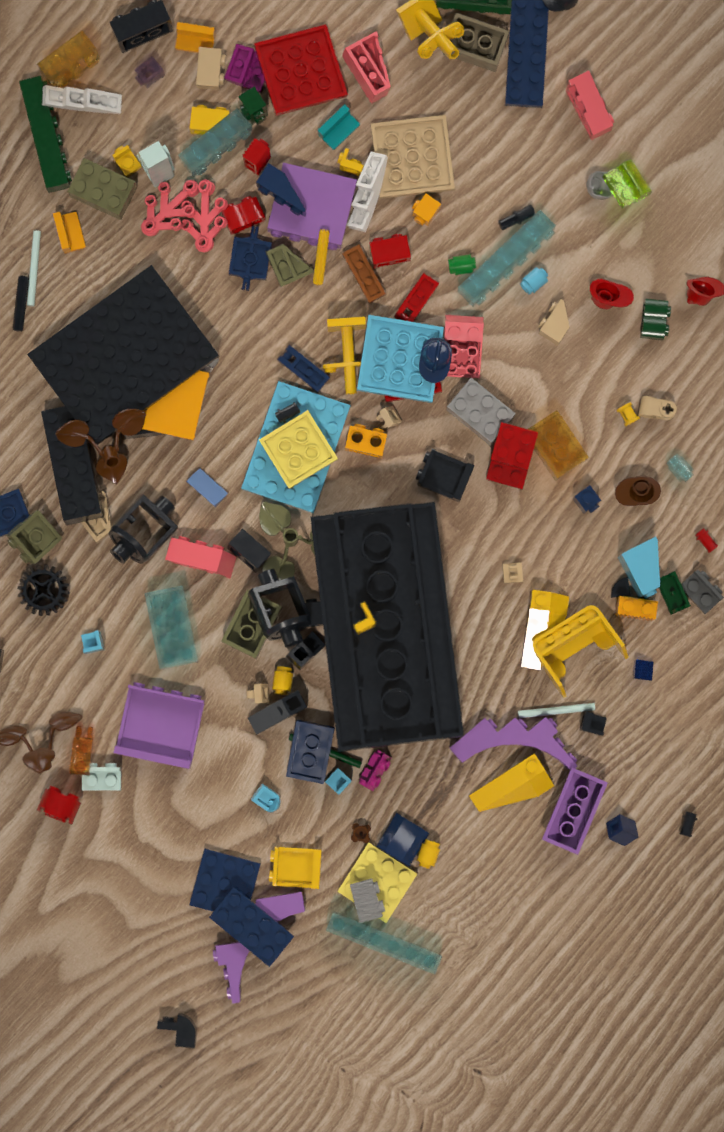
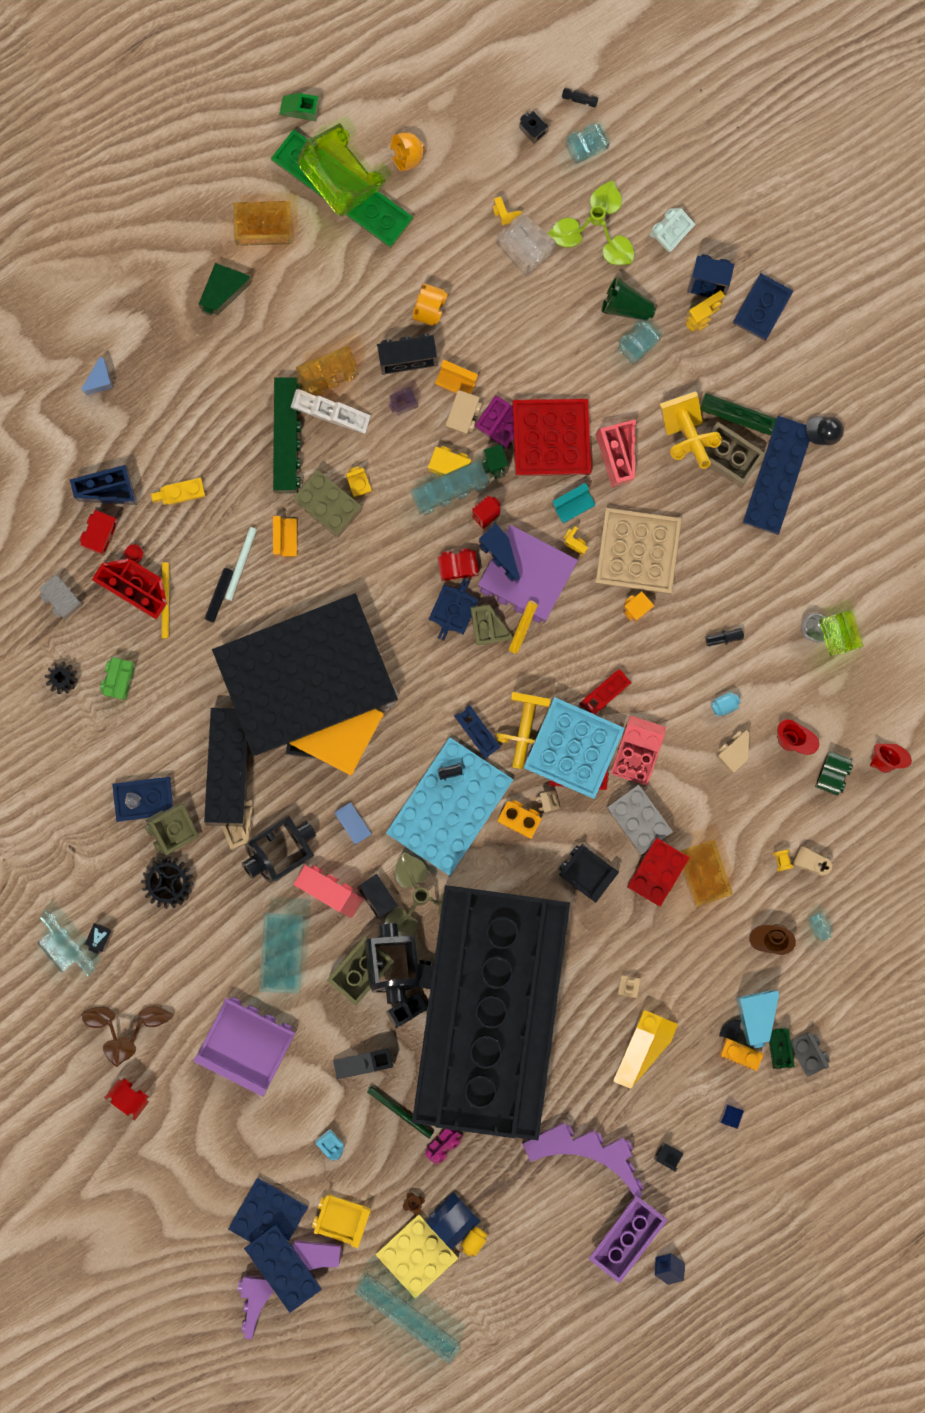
camera: 15 degrees right, 0 degrees up
(81, 752) = (162, 1052): clear orange hinge -> none
(92, 642) = (201, 946): medium azure panel -> none
(102, 778) = (175, 1081): light aqua bracket -> none
(111, 464) = (266, 775): reddish brown plant -> none
(156, 163) = (386, 493): light aqua wedge -> none
(168, 210) = (386, 541): coral plant -> none
(185, 1029) = (191, 1347): black brick -> none
(205, 218) = (420, 559): coral plant -> none
(260, 693) = (351, 1040): tan tile -> none
(282, 680) = (376, 1033): yellow brick -> none
(298, 449) = (451, 811): light yellow plate -> none
(310, 751) = (385, 1110): dark blue plate -> none
(338, 781) = (405, 1146): medium azure panel -> none
(364, 274) = (560, 654): dark orange plate -> none
(366, 900) = (401, 1272): light grey brick -> none
(367, 623) = (472, 1008): yellow panel -> none
(368, 192) = (585, 576): white slope -> none
(389, 251) = (591, 638): red brick -> none
(435, 360) = (608, 758): dark blue piece -> none
(461, 264) = (658, 670): green brick -> none
(506, 258) = (703, 675): clear light blue brick -> none
(519, 783) = (579, 1195): yellow wedge -> none
(556, 710) = (636, 1133): light aqua bar -> none
(571, 637) = (668, 1066): yellow windscreen -> none
(587, 500) = (720, 935): dark blue brick -> none
(589, 105) = (825, 546): coral wedge -> none
(688, 824) = (736, 1280): black pin -> none
(706, 540) = (827, 1004): red pin -> none

